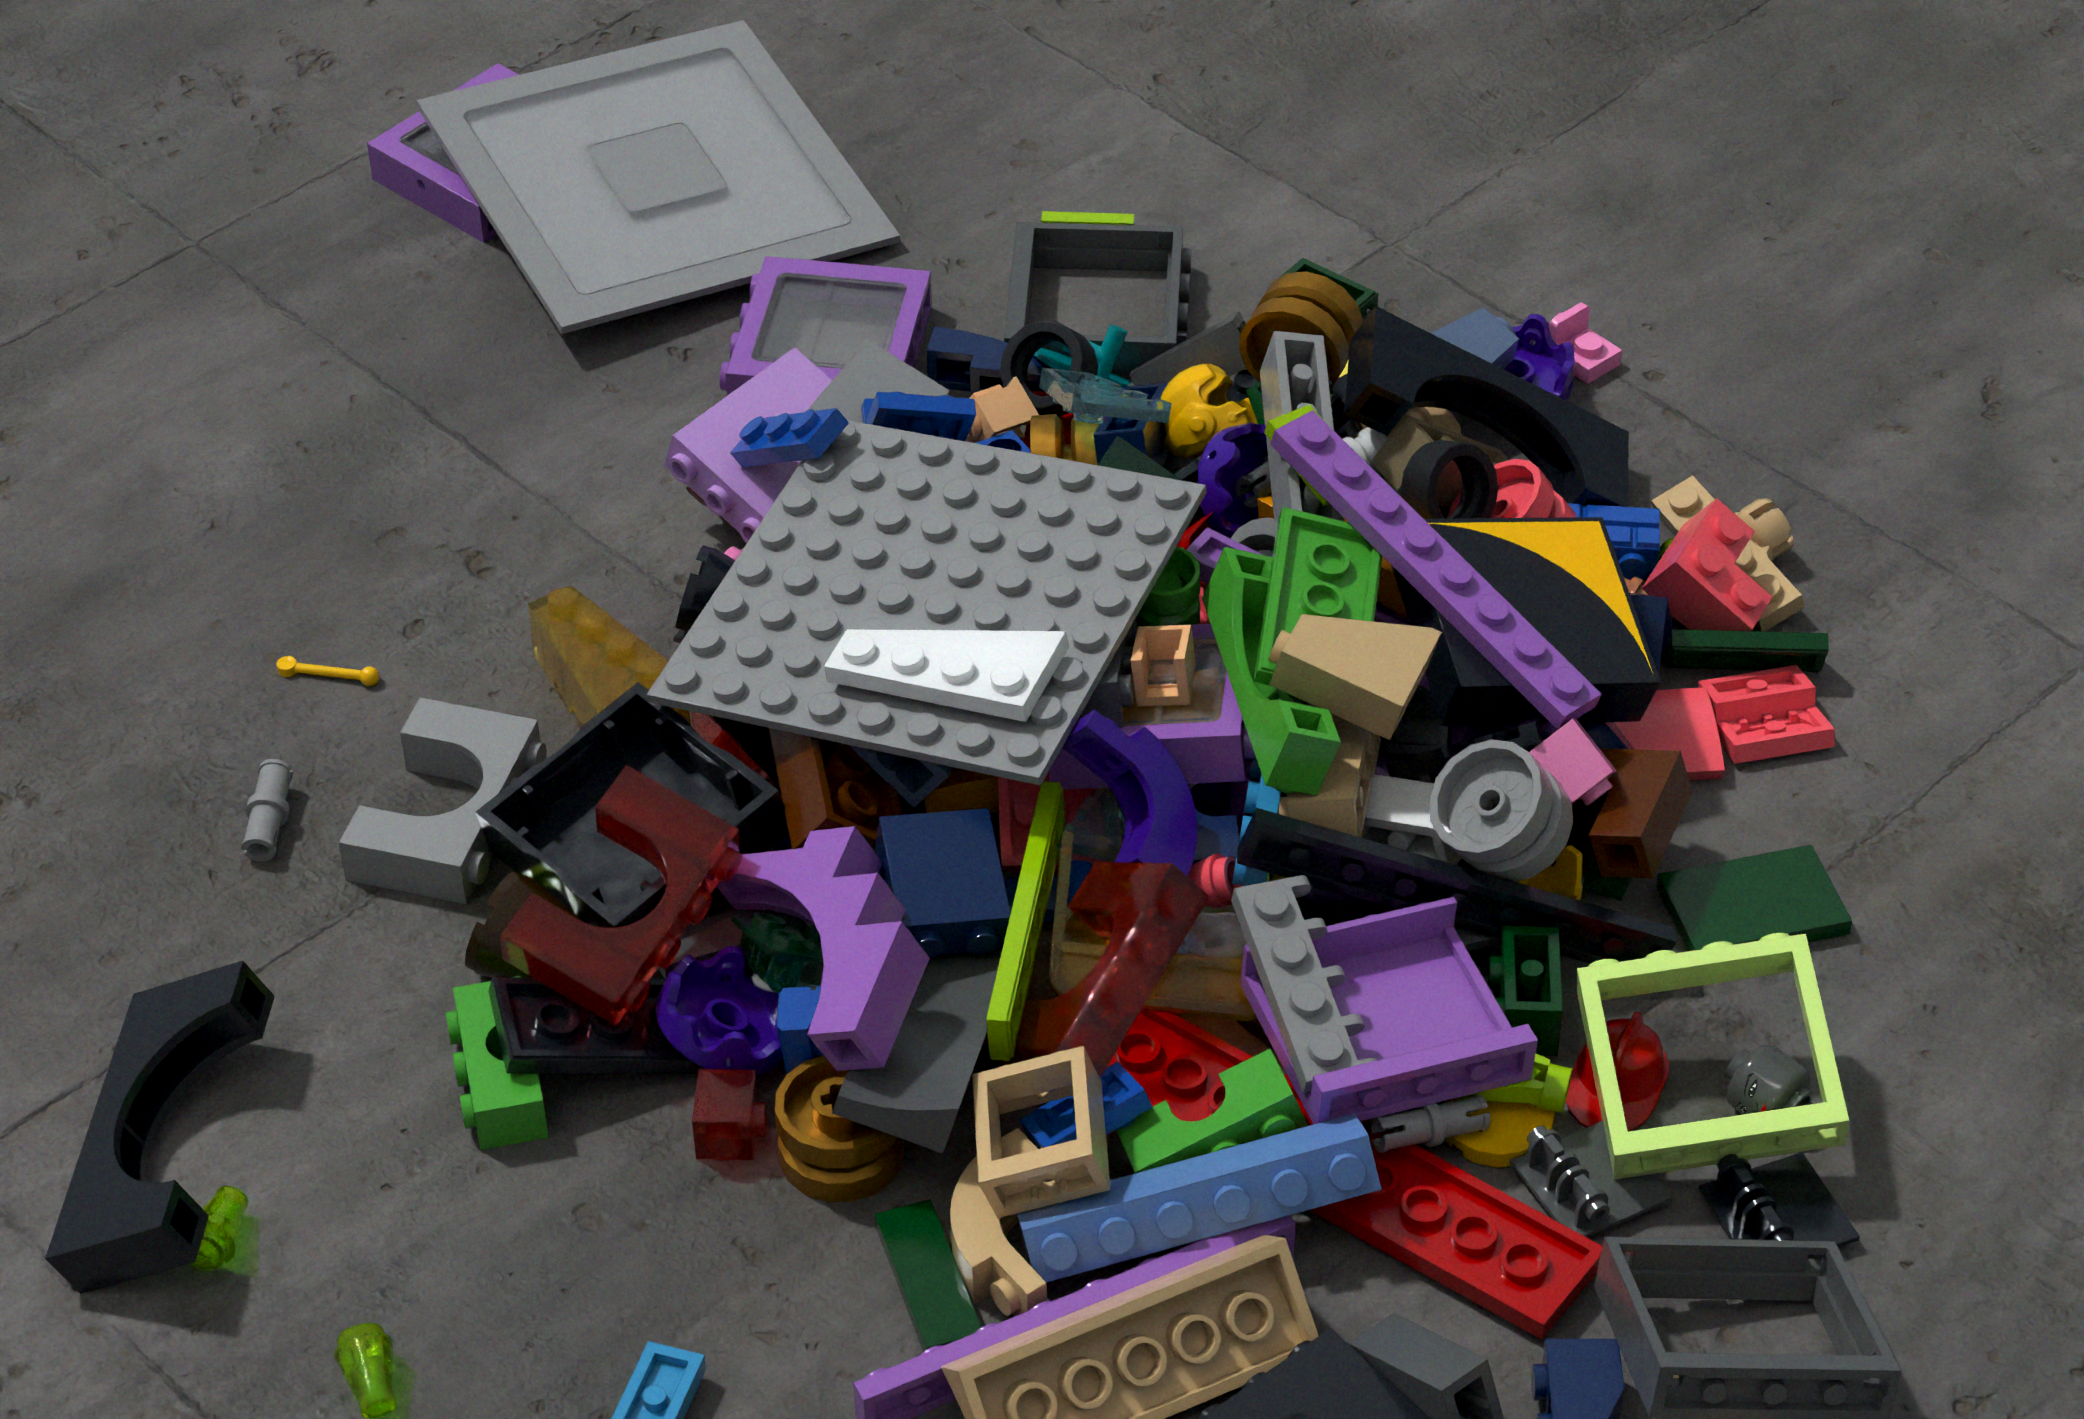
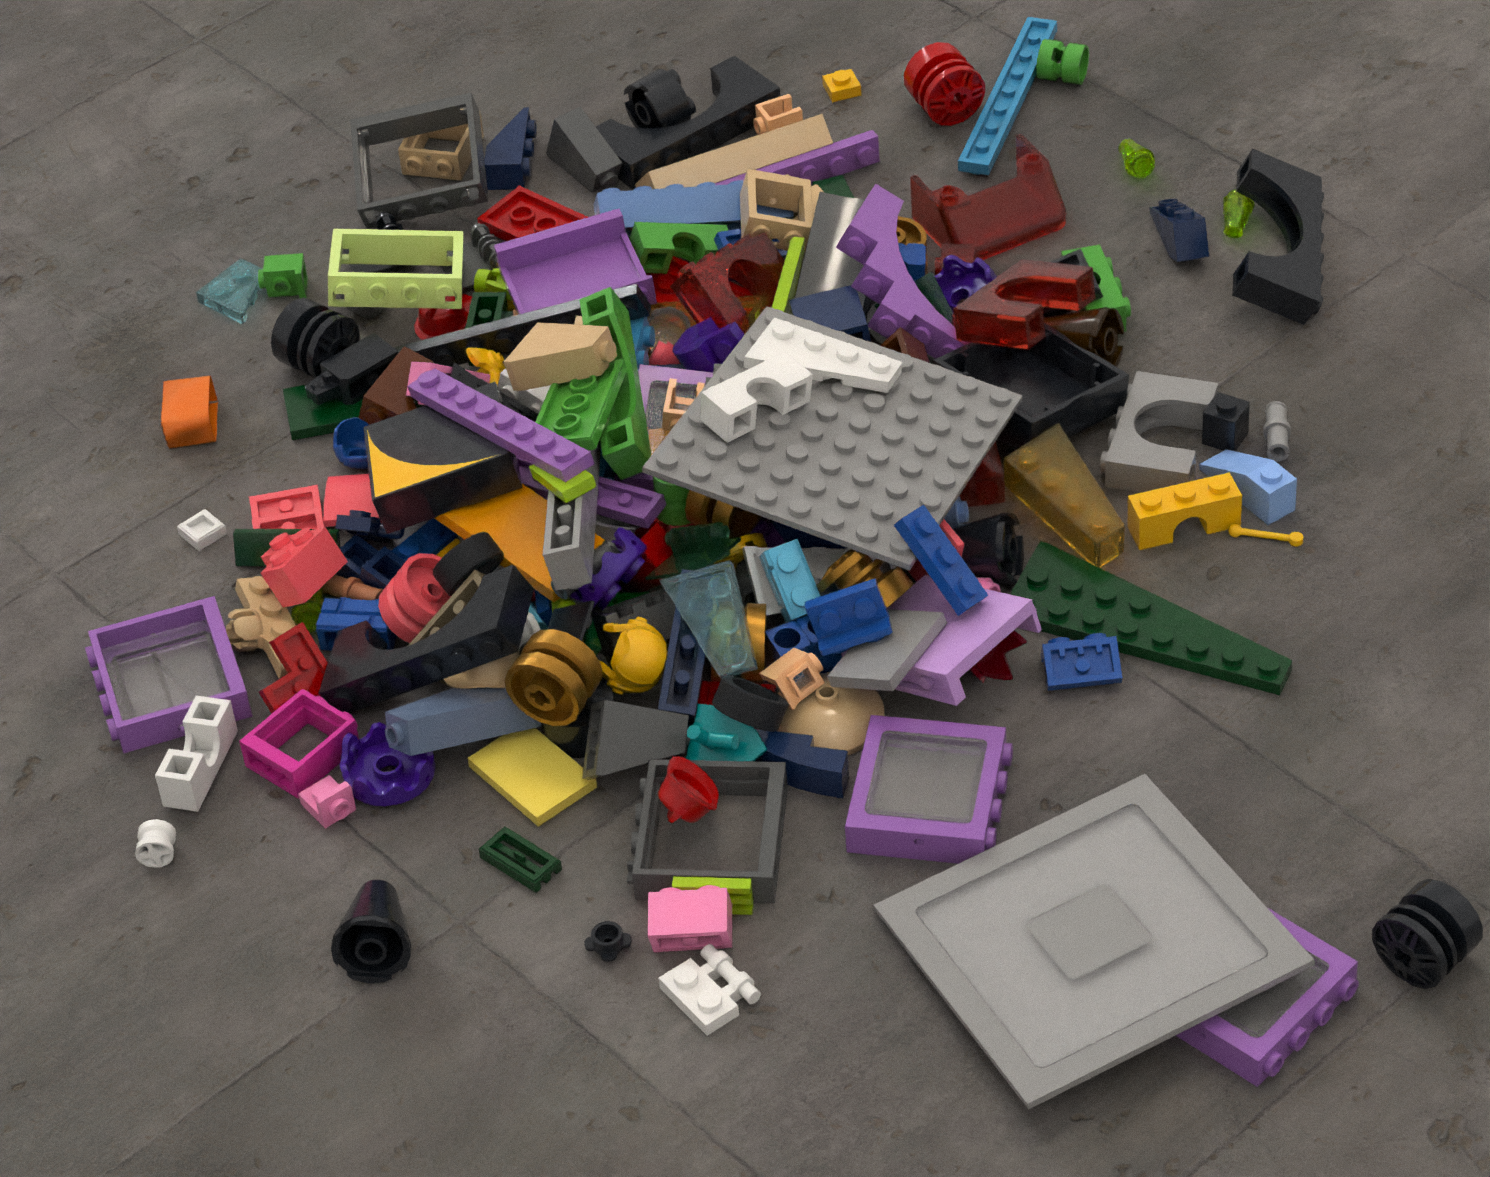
camera: 175 degrees left, 0 degrees up
(282, 165) = (1427, 933): none -> black wheel
(325, 1194) = (1180, 230): none -> dark blue slope
(328, 726) = (1264, 484): none -> light blue slope
(333, 800) = (1225, 422): none -> black brick
(399, 670) = (1158, 512): none -> yellow arch
(533, 546) = (1086, 600): none -> dark green wing
(618, 492) = (1081, 662): none -> blue bracket
(642, 1215) = (998, 215): none -> clear red windscreen
(1017, 588) = (732, 404): none -> white arch
(1087, 166) = (700, 997): none -> white plate
(1113, 193) = (689, 919): none -> bright pink brick
(1117, 272) = (687, 791): none -> red piece
(1207, 205) = (607, 940): none -> black plate
(1295, 978) = (621, 258): light grey hinge -> none
(1478, 185) = (372, 935): none -> black cone
(1501, 810) = (484, 333): light grey wheel -> none
(1635, 361) = (262, 743): none -> dark pink window
(1670, 466) = (301, 661): none -> red plate
(1706, 807) = (350, 443): none -> blue hair
(1731, 899) = (351, 371): none -> black hinge
(1765, 370) = (189, 773): none -> white arch
(1780, 293) = (155, 843): none -> white wheel
(1842, 953) = (311, 334): none -> black wheel
(1852, 485) = (158, 675): none -> piece
(1893, 705) = (202, 530): none -> white tile
(1929, 1138) = (284, 275): none -> bright green brick
(1988, 870) = (186, 412): none -> orange piece
(2017, 1137) = (232, 290): none -> clear light blue wing

